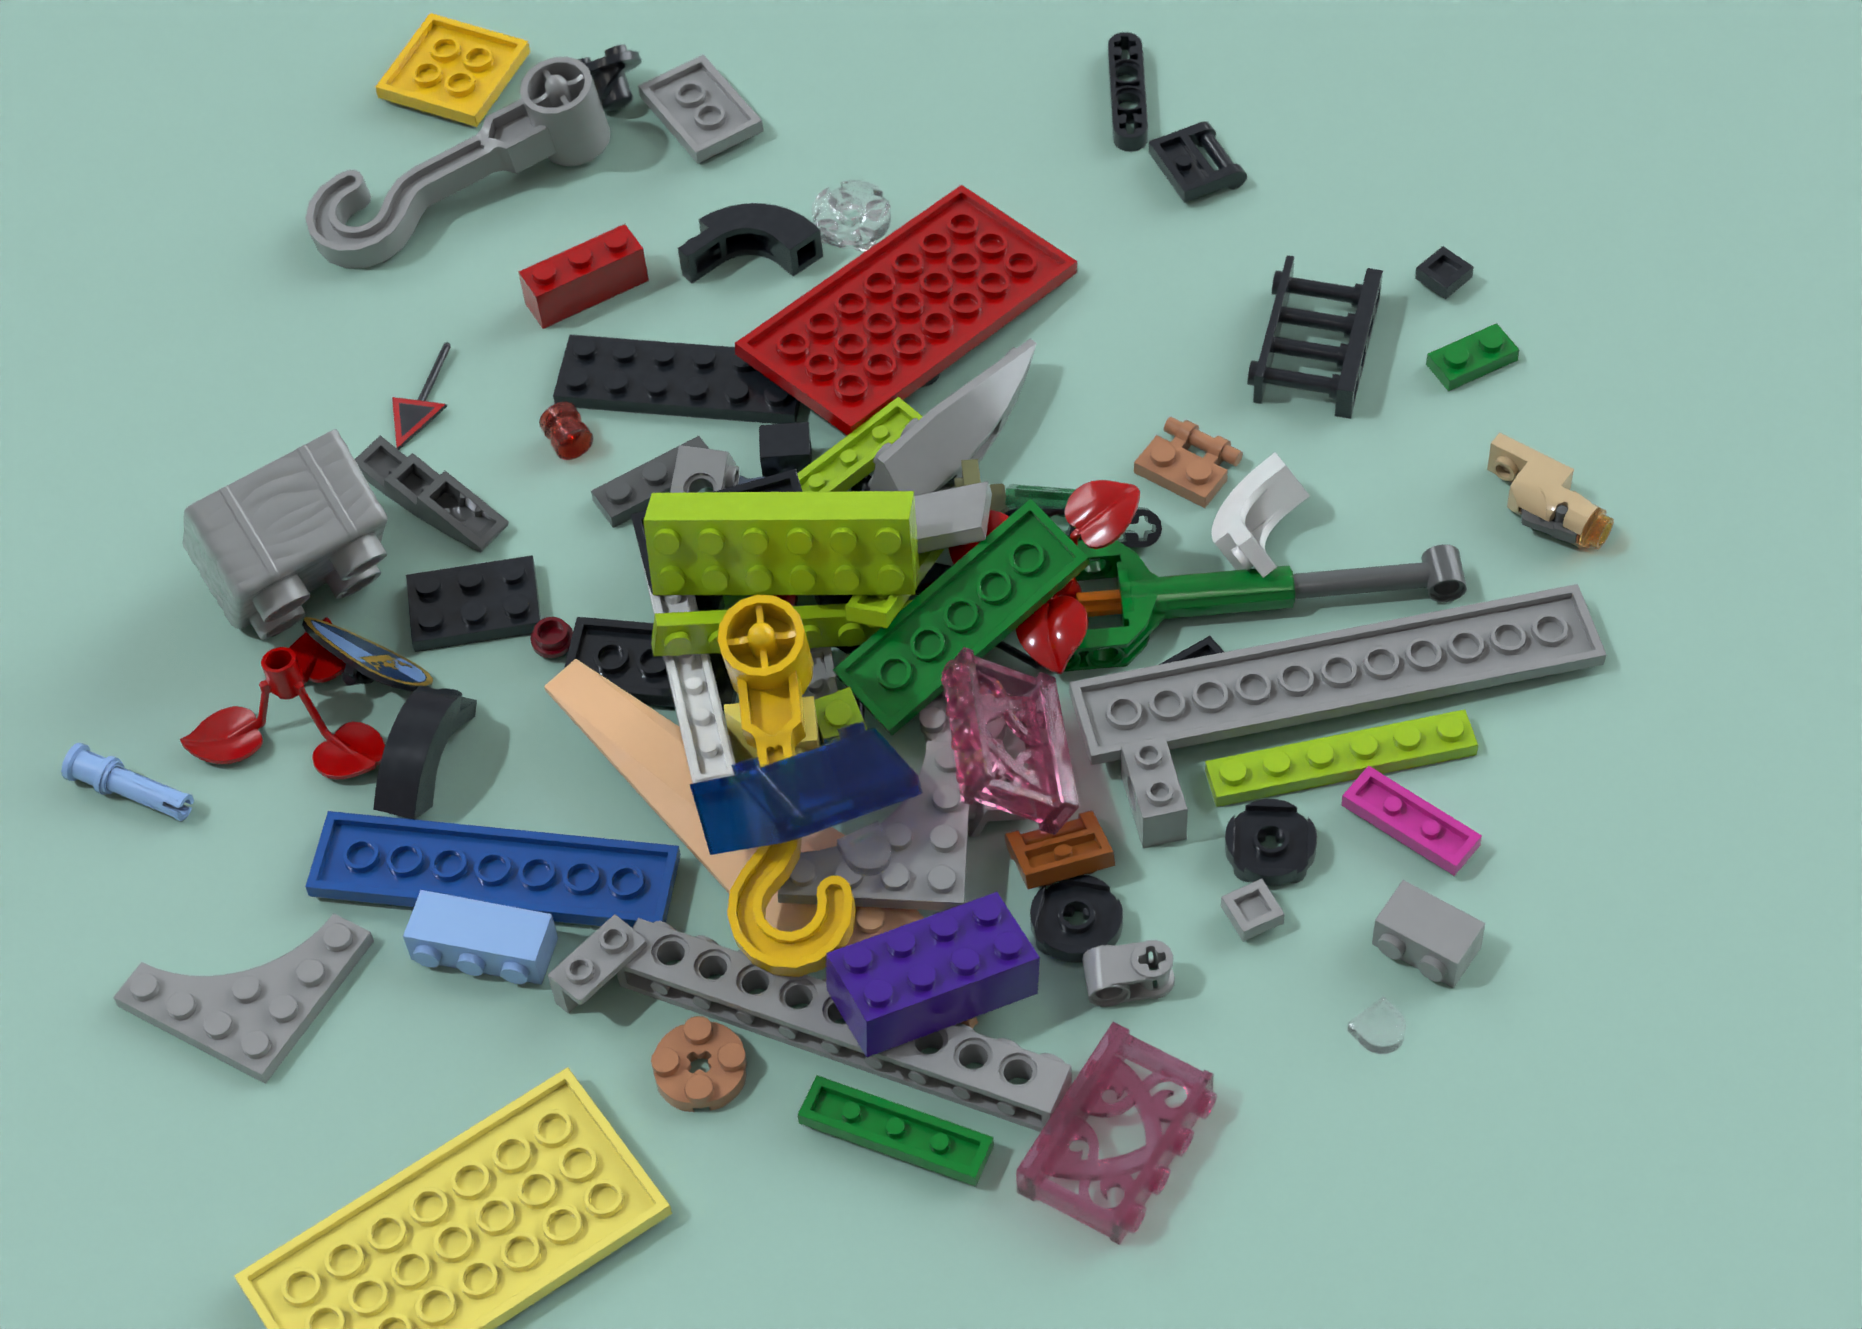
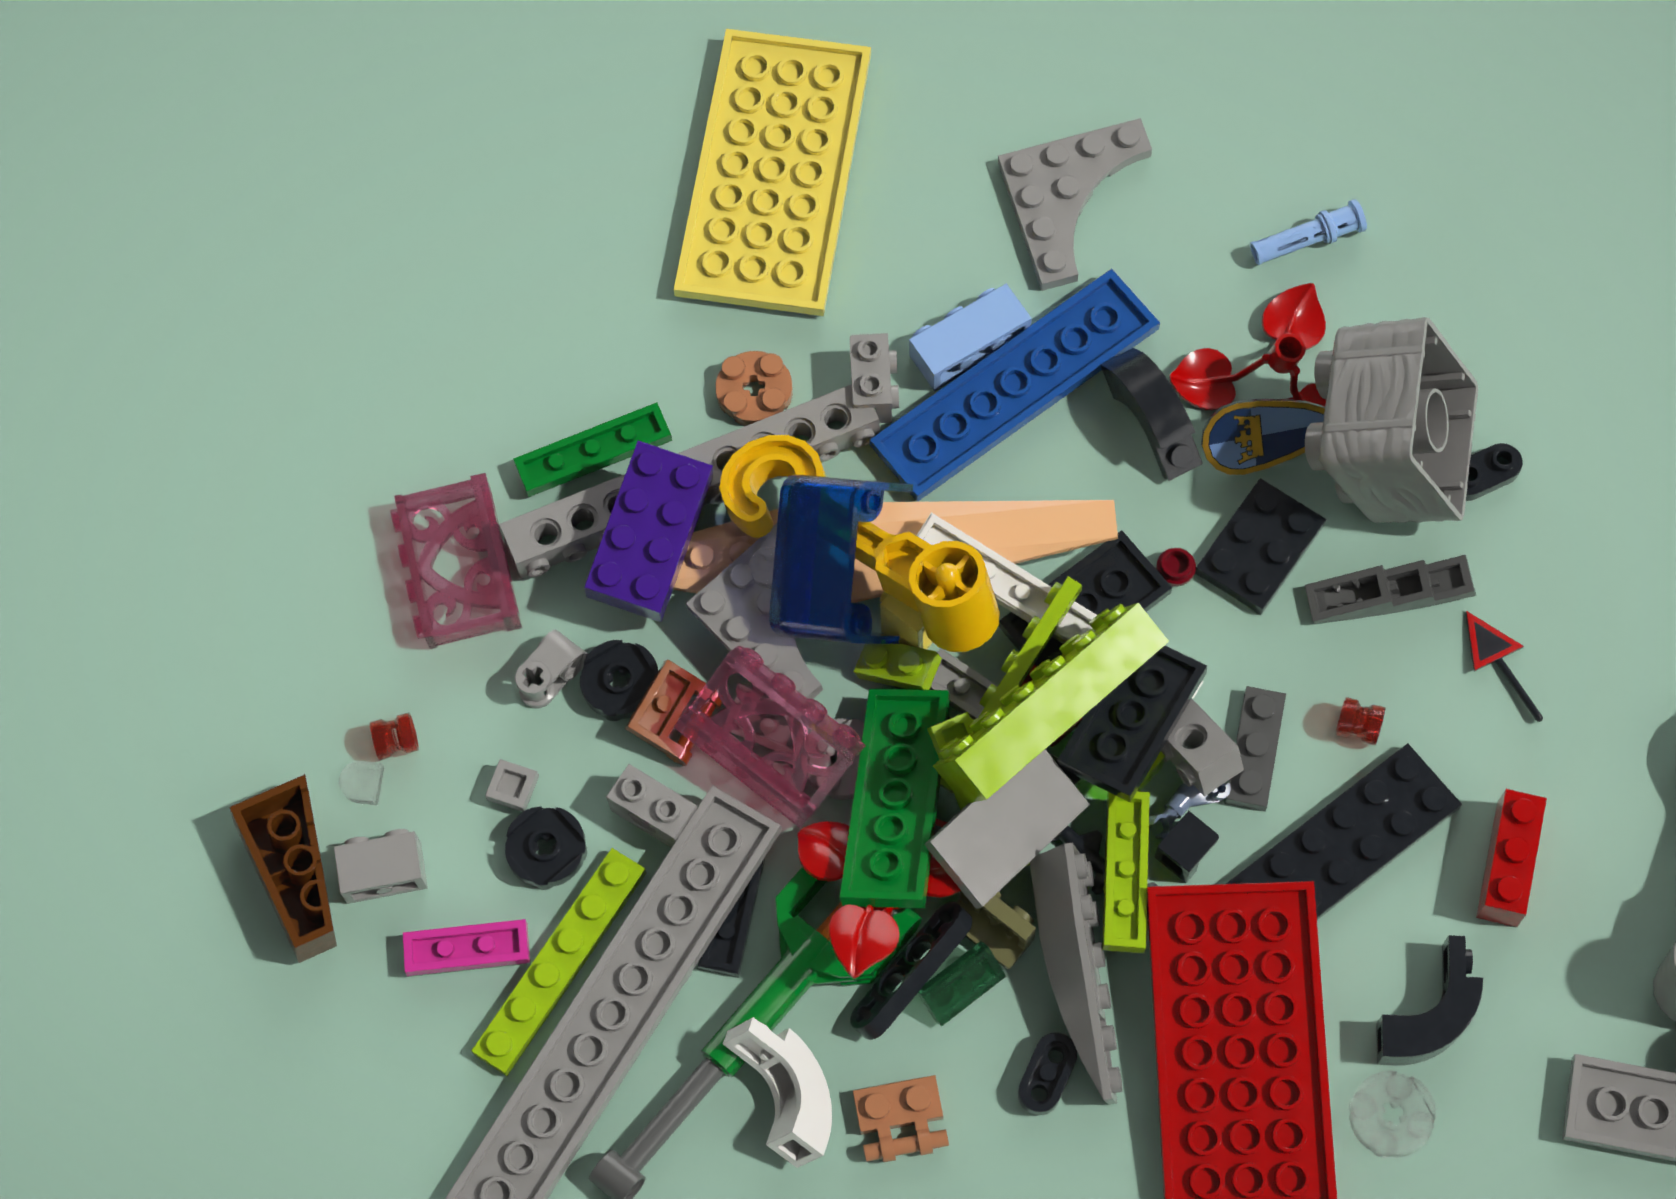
camera: 135 degrees right, 15 degrees up
(1049, 403) = (1046, 1074): none -> black plate
(1317, 1029) = (385, 737): none -> clear red wheel
(1504, 1002) = (286, 855): none -> reddish brown wedge

